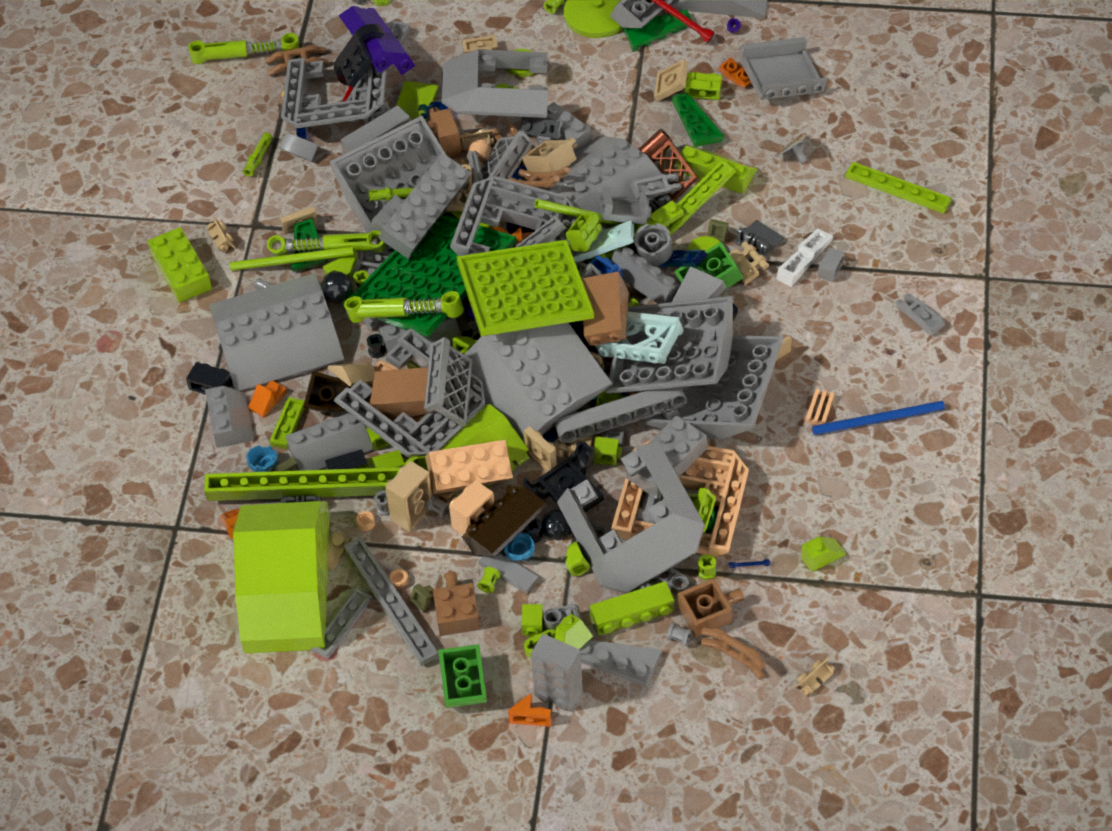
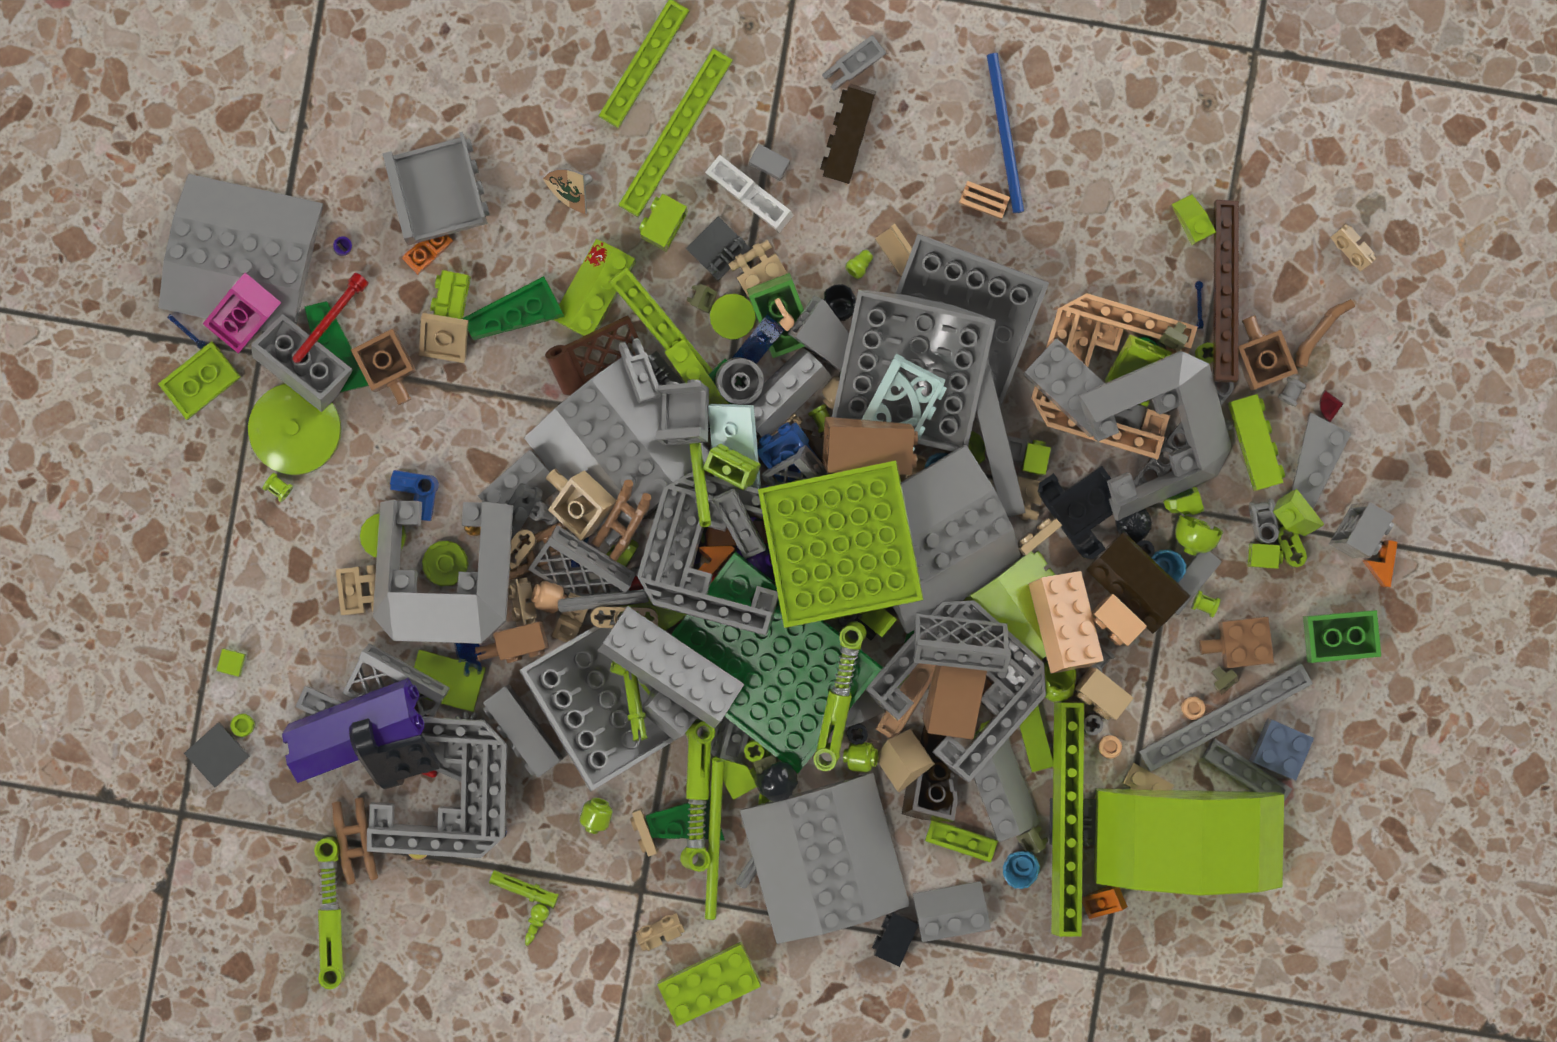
camera: 90 degrees left, 35 degrees up
(233, 163) = (538, 914): none -> lime bar
(266, 398) = (922, 866): orange slope -> none
(299, 147) = (519, 835): light grey slope -> none
(312, 190) = (596, 815): none -> lime head
(351, 460) = (1034, 768): black tile -> none
(356, 349) = (861, 757): none -> lime head
(362, 641) = (1281, 749): none -> sand blue brick
(416, 76) = (397, 671): none -> light grey fence
(510, 127) = (525, 550): none -> tan beam
(548, 564) = (1196, 535): none -> lime cylinder
(557, 79) = (412, 483): none -> blue piece
(649, 50) = (385, 364): none -> medium nougat brick
(669, 668) = (1329, 405): none -> dark red tile
(706, 268) = (788, 321): none -> light nougat hand
(718, 528) = (1174, 337): none -> olive tile
(756, 326) = (857, 266): none -> lime piece
(762, 572) = (1226, 291): none -> reddish brown plate
(773, 197) = (663, 222): none -> lime brick
(847, 209) = (675, 132): none -> lime tile
(863, 309) = (849, 133): none -> dark brown wedge

